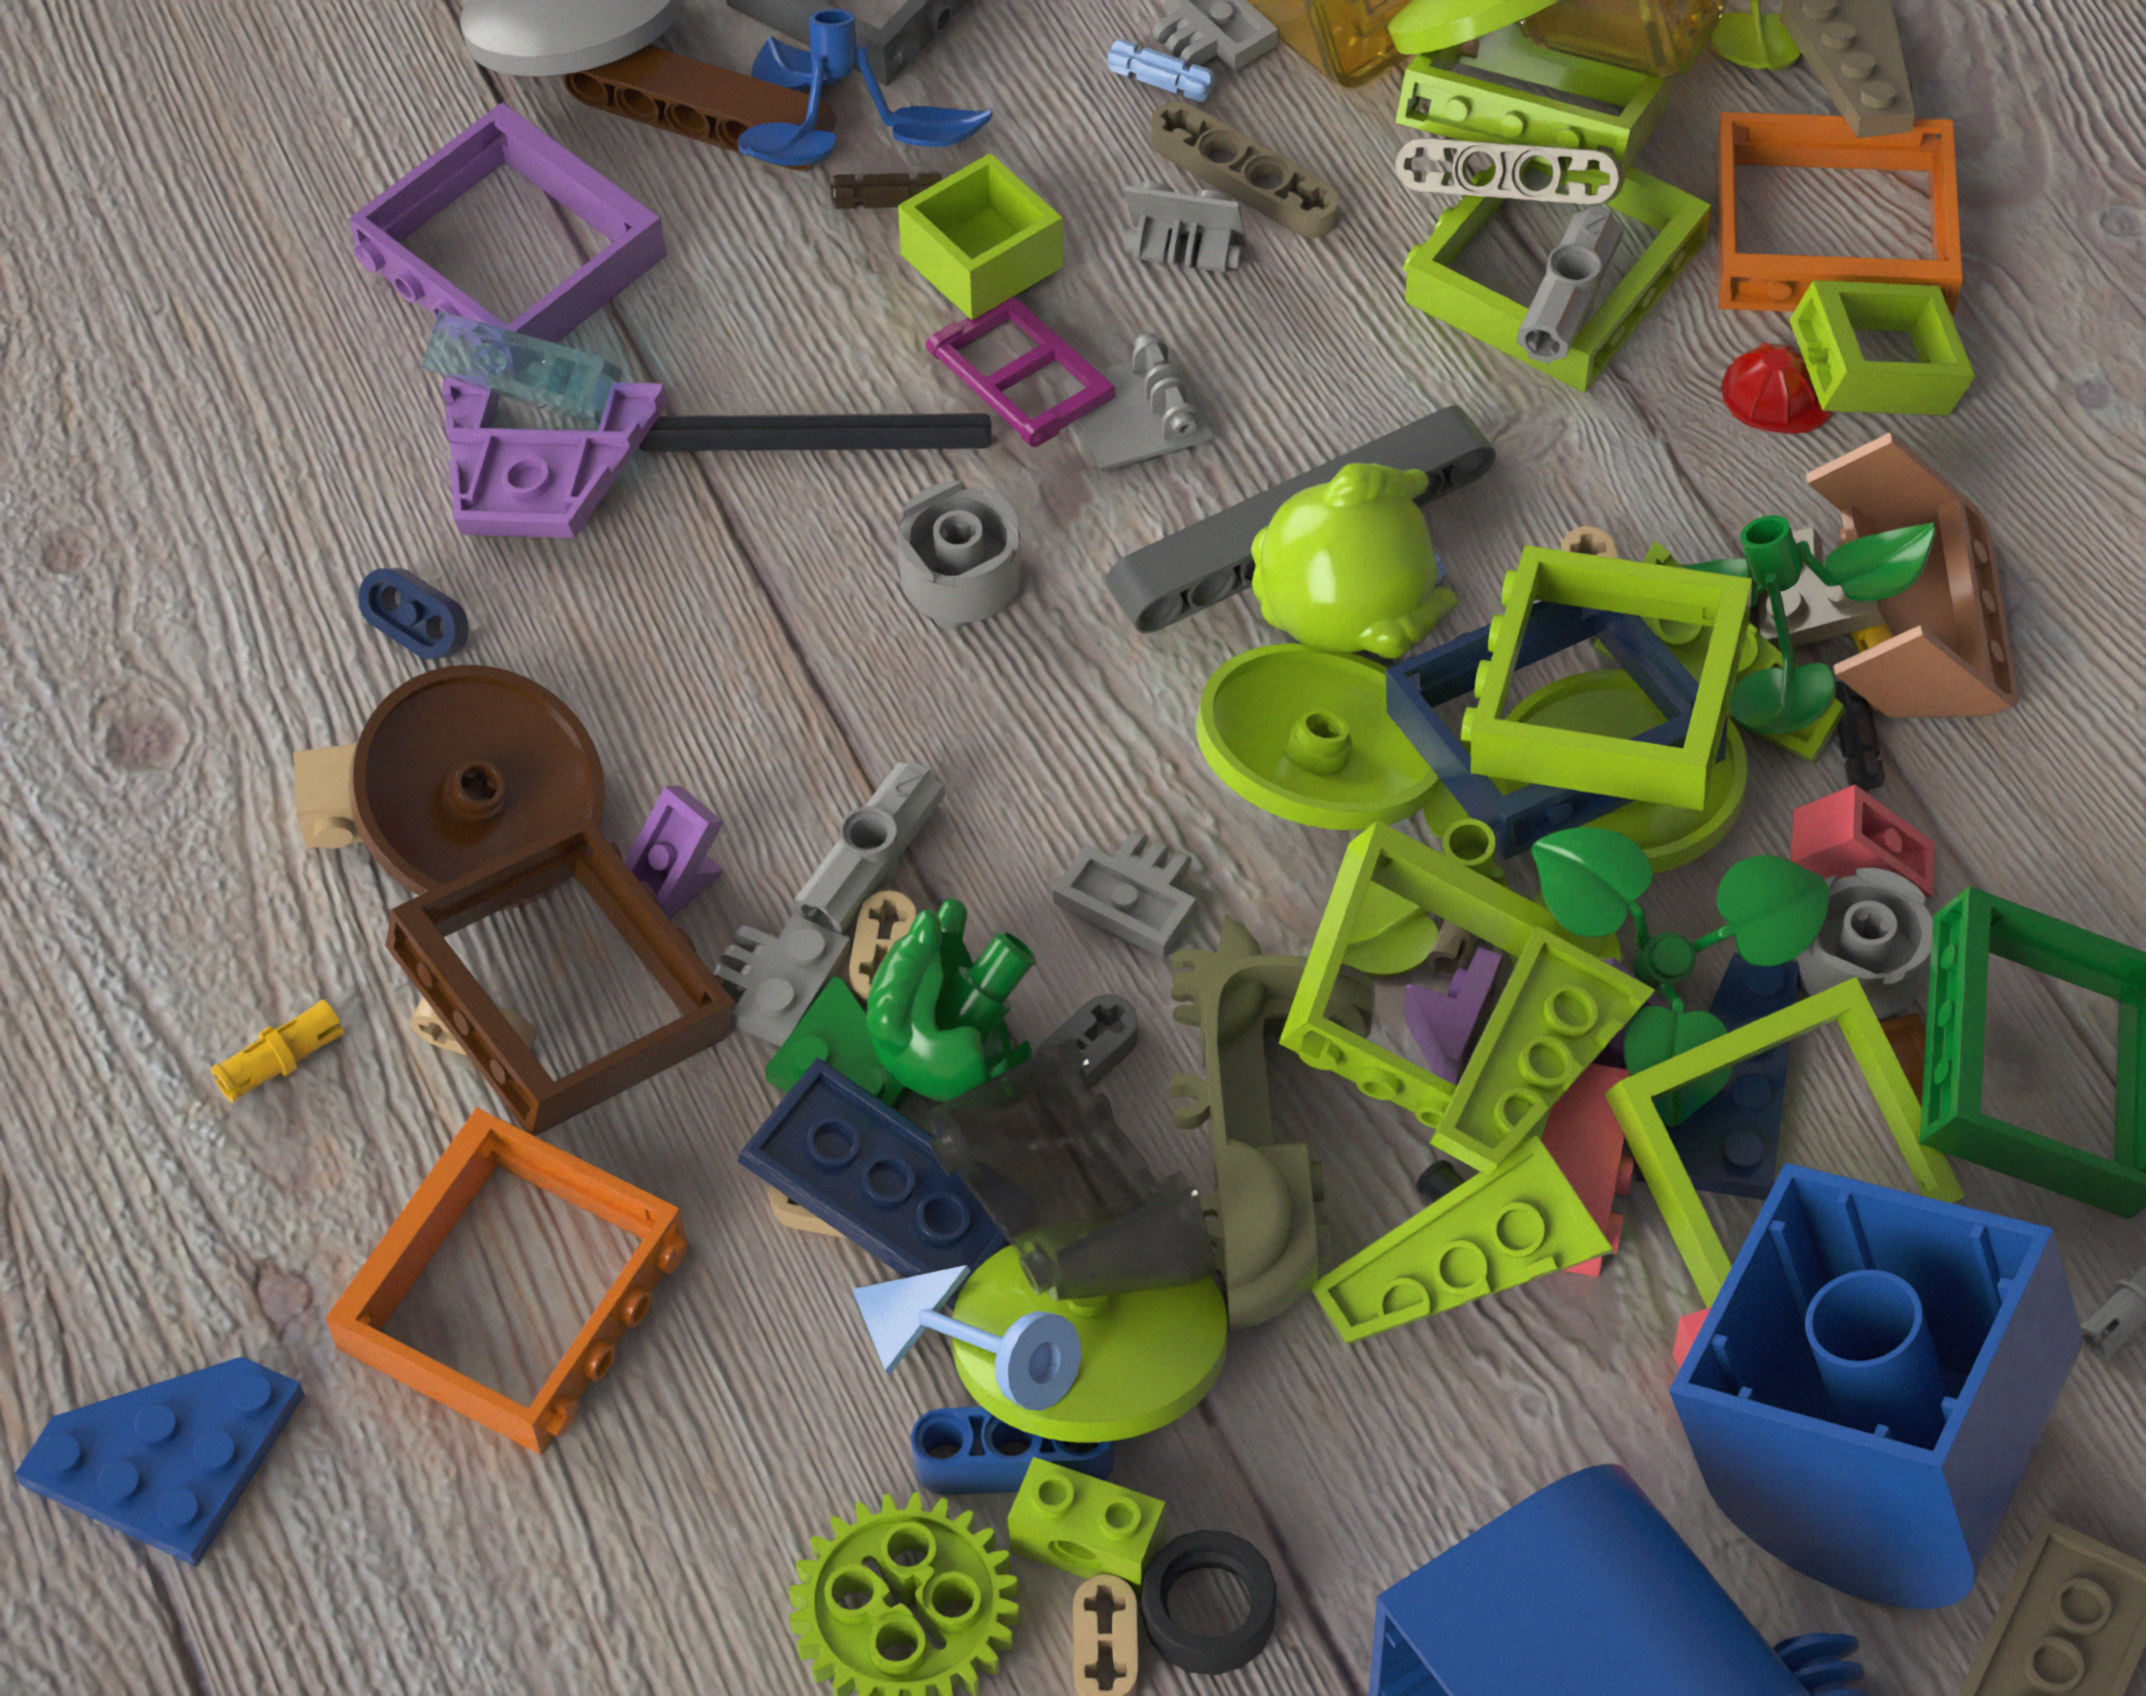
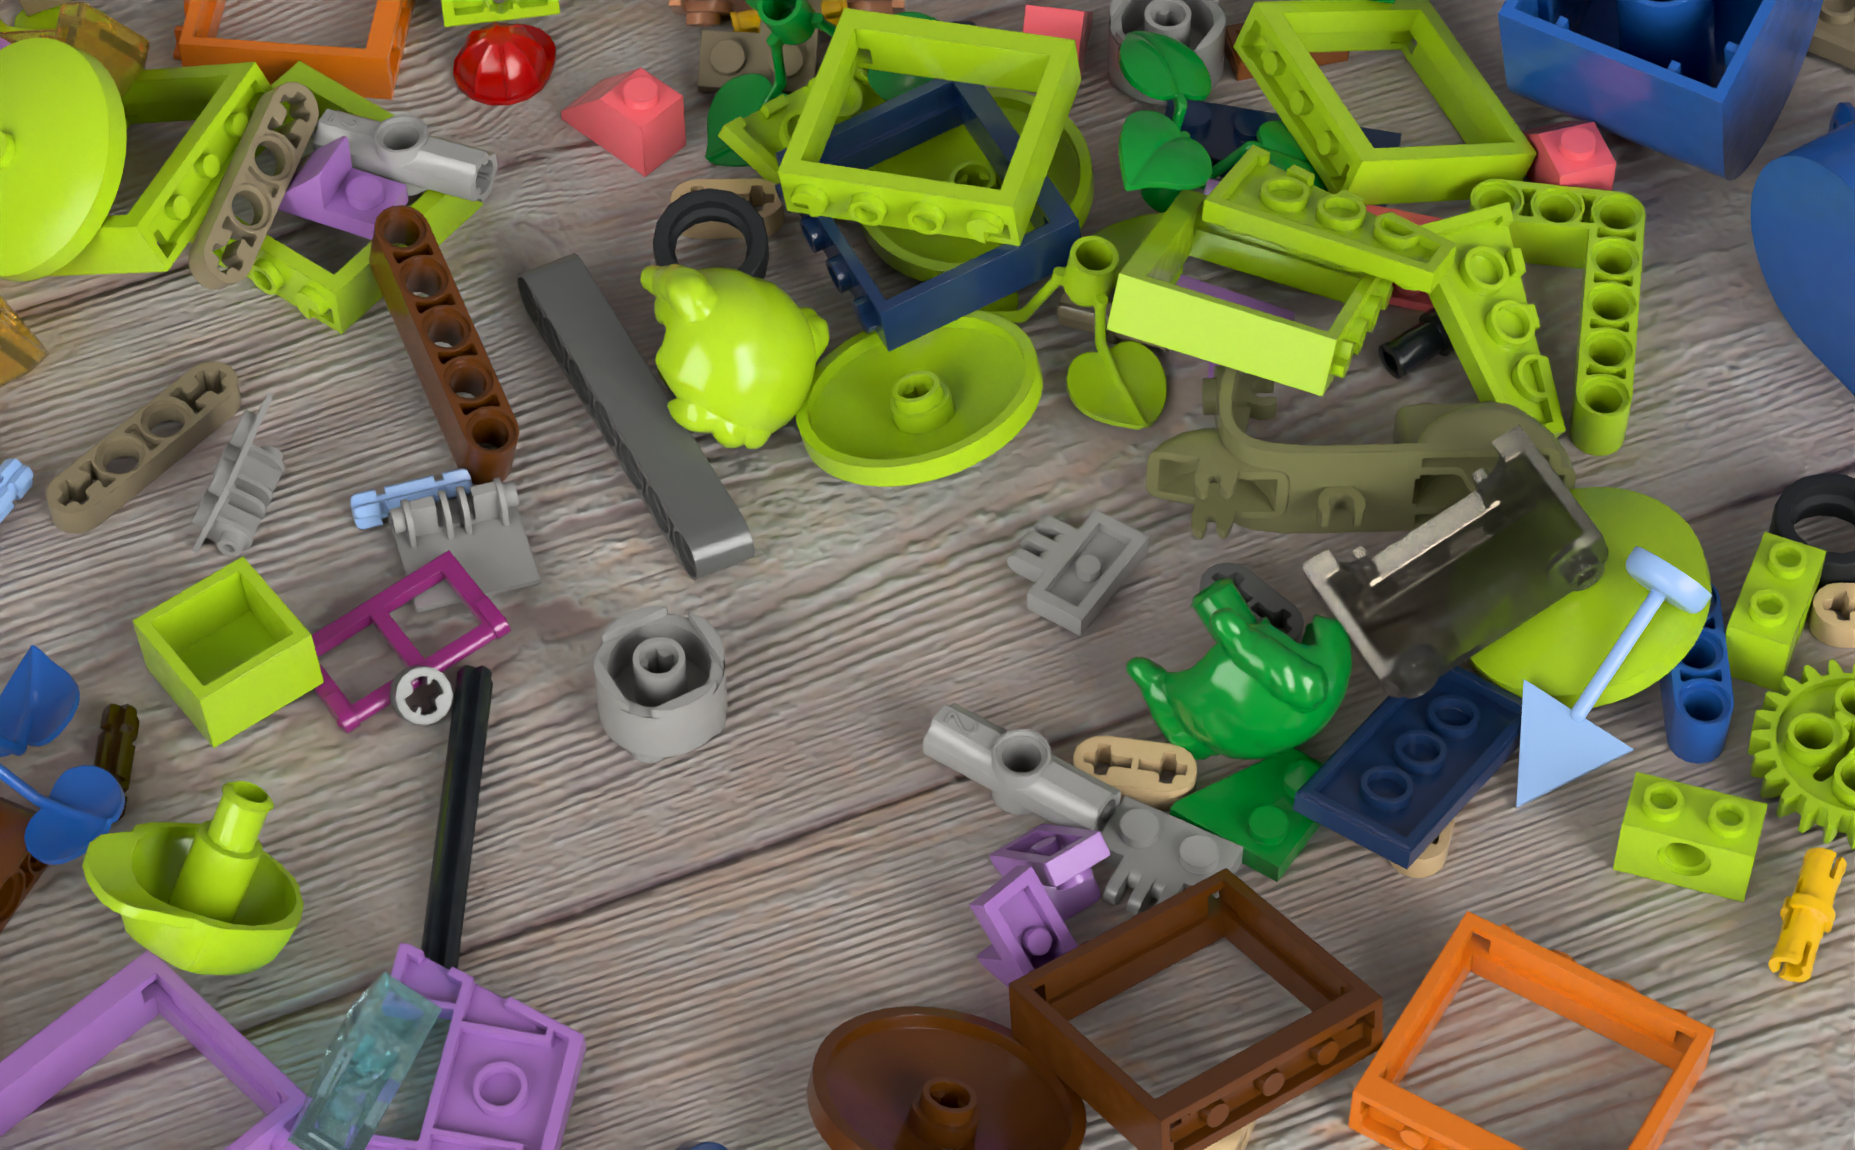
camera: 90 degrees left, 5 degrees down
(702, 1546) = (1807, 914): none -> yellow pin
(704, 228) = (200, 890): none -> lime piece
(757, 875) = (1061, 861): none -> medium lavender slope
(788, 1430) = (1689, 836): none -> lime brick
(940, 381) = (439, 701): none -> bush
(1194, 364) = (370, 508): none -> light blue axle
(1361, 324) = (446, 320): none -> reddish brown beam
(1486, 531) = (713, 206): none -> black tyre
(1520, 249) = (336, 194): none -> medium lavender slope
(1532, 1368) = (1606, 239): none -> lime beam
(1693, 487) = (631, 119): none -> coral slope

